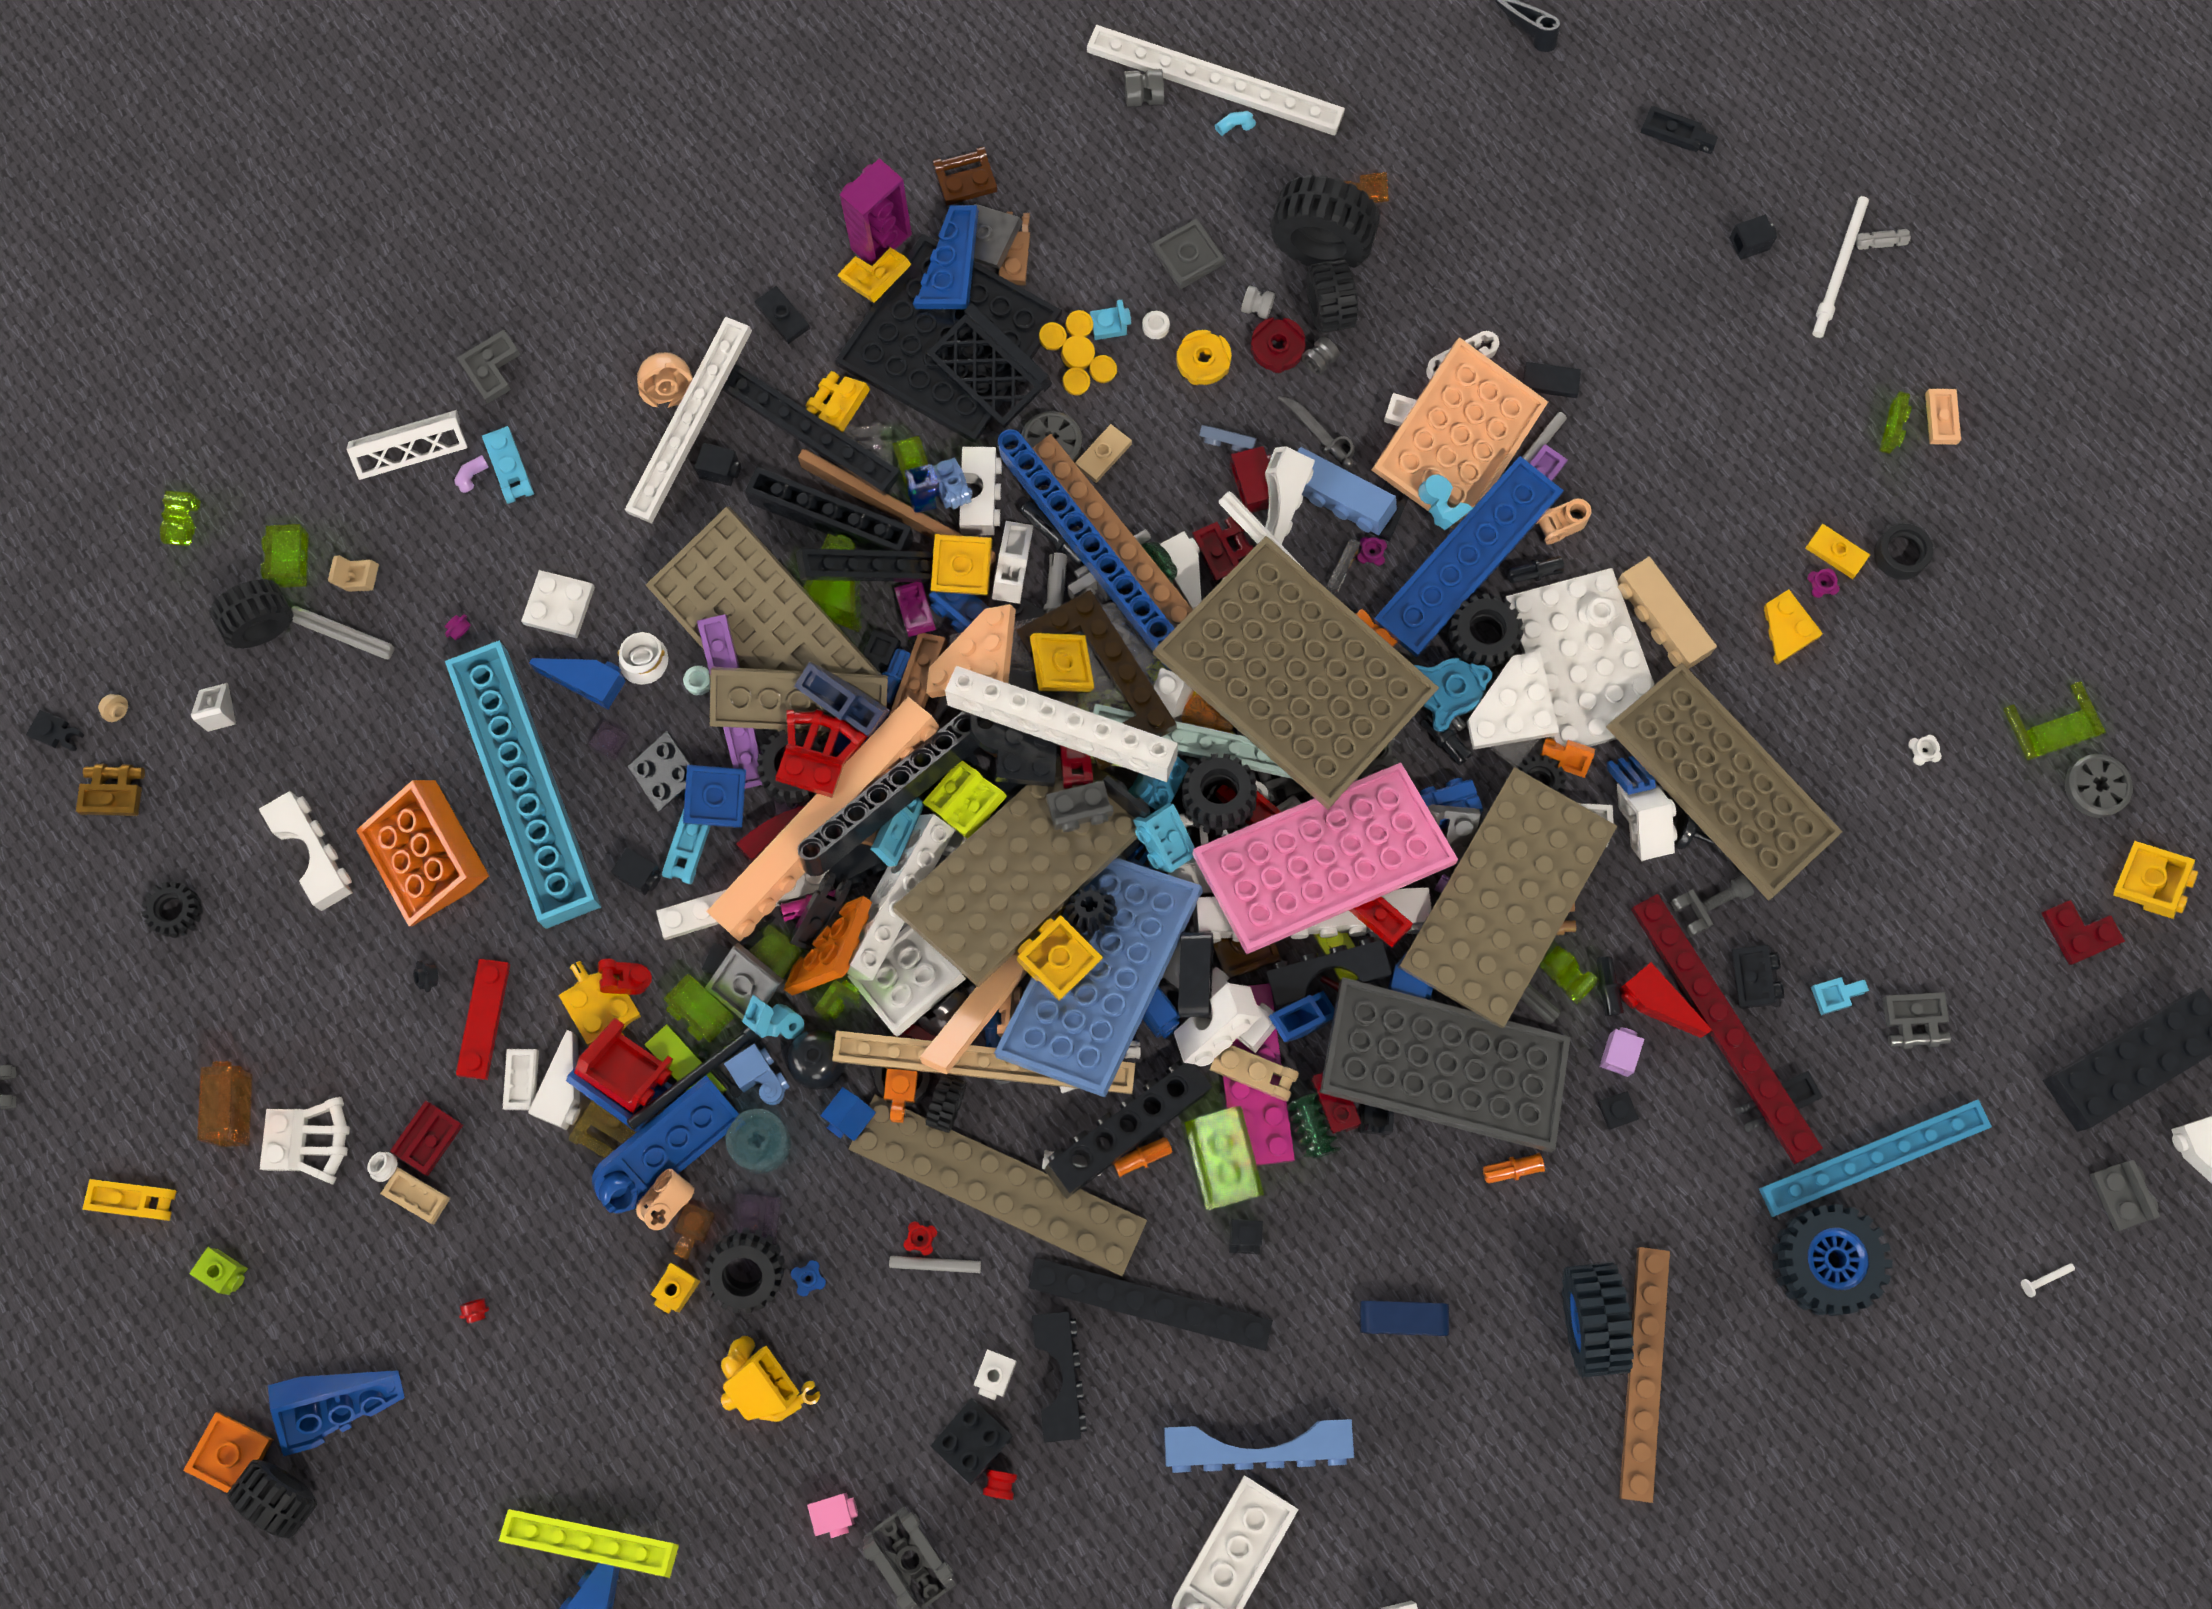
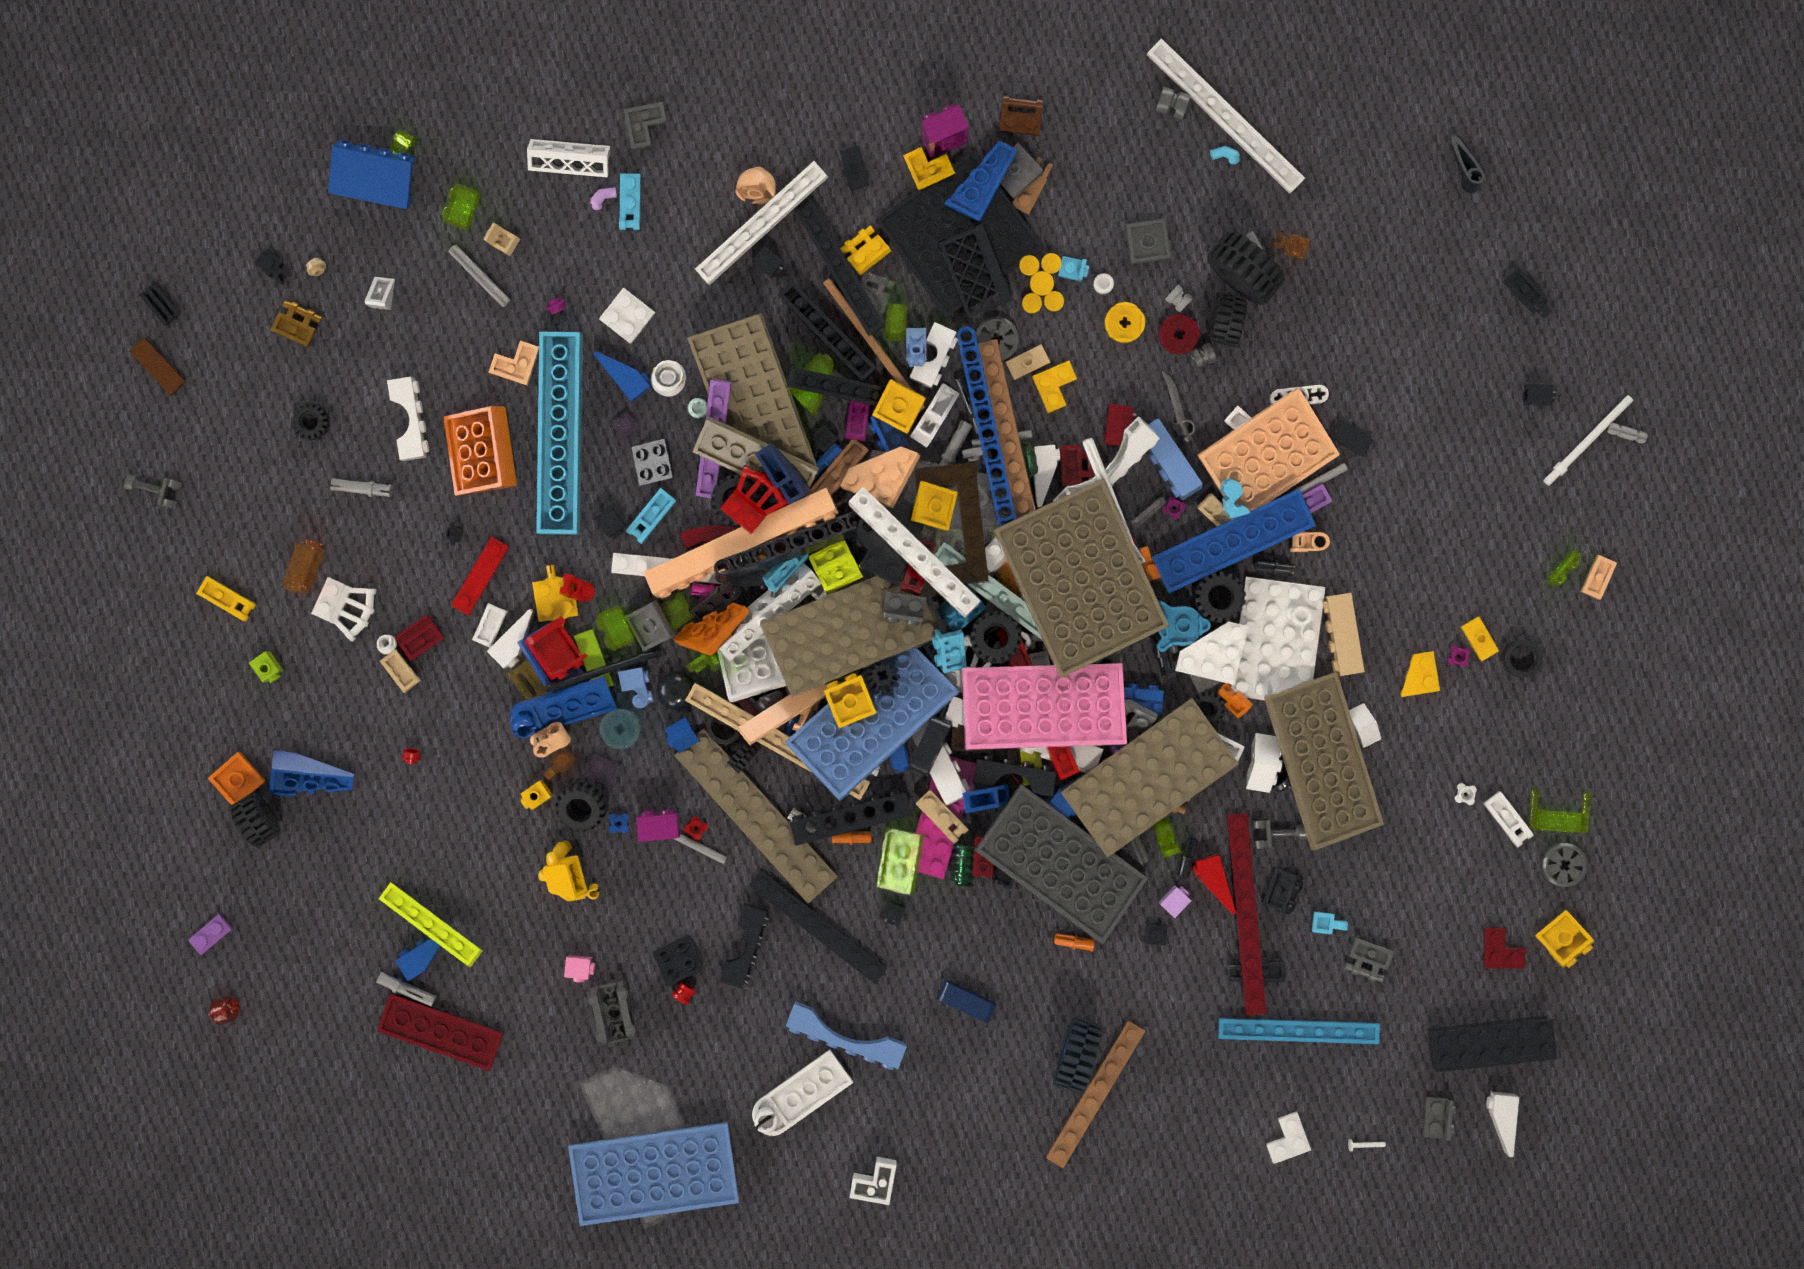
camera: 20 degrees right, 15 degrees up
(147, 559) = (371, 174): none -> blue panel
(251, 613) = (426, 244): black tyre -> none
(285, 964) = (361, 487): none -> light grey pin
(436, 727) = (518, 369): none -> light nougat plate
(714, 796) = (678, 495): blue plate -> none
(772, 1021) = (658, 658): medium azure leg -> none
(864, 1253) = (658, 826): none -> magenta brick
(900, 1088) = (719, 734): orange plate -> none
(922, 487) = (895, 343): clear blue brick -> none
(994, 1375) = (707, 928): white brick -> none
(1143, 469) = (1049, 383): none -> yellow plate
(1204, 1038) = (940, 782): white arch -> none
(1216, 435) = (1119, 392): sand blue plate -> none
(1423, 532) = (1212, 509): none -> tan plate
(1636, 774) = (1267, 721): blue tile -> none
(1754, 716) = (1365, 725): none -> white slope
(1802, 1278) = (1218, 1069): black wheel -> none
(1949, 1319) = (1292, 1143): none -> white plate
(1996, 757) = (1508, 818): none -> white plate

